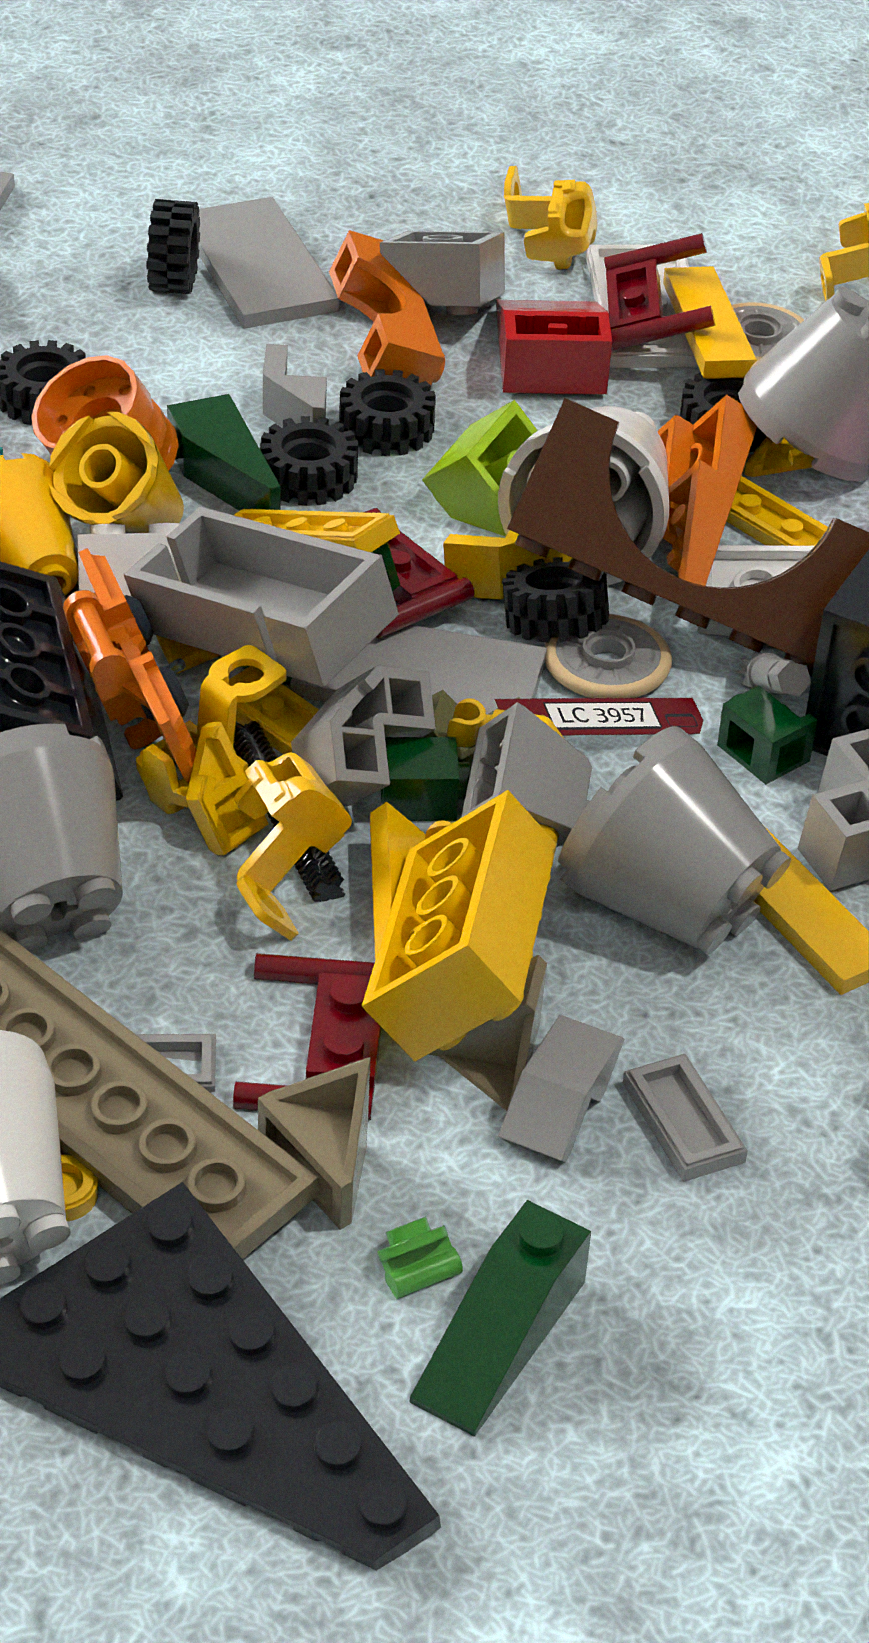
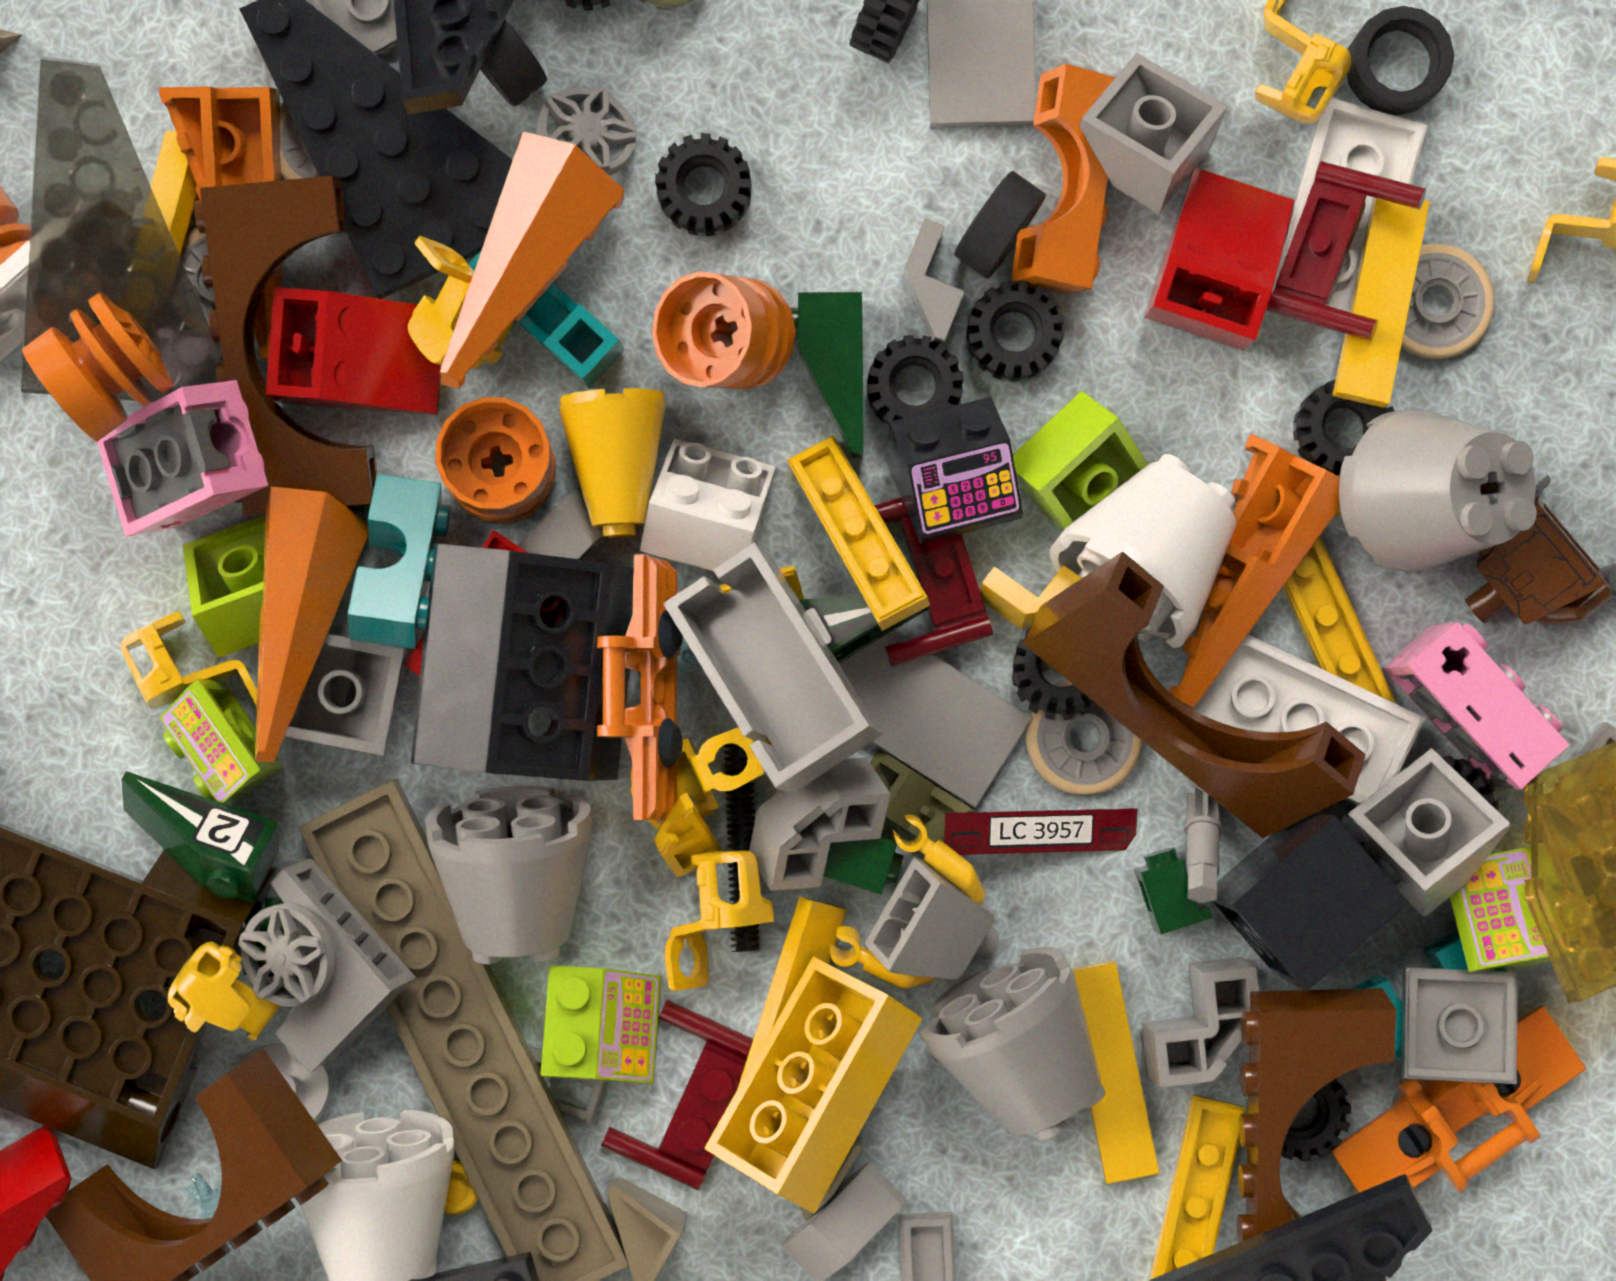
camera: 25 degrees right, 45 degrees up
(113, 475) = (704, 438): yellow cone -> none
(182, 973) = (600, 1025): none -> lime slope
(337, 334) = (998, 223): none -> black tyre
(372, 472) = (954, 470): none -> black slope
(638, 196) = (1433, 37): none -> black tyre

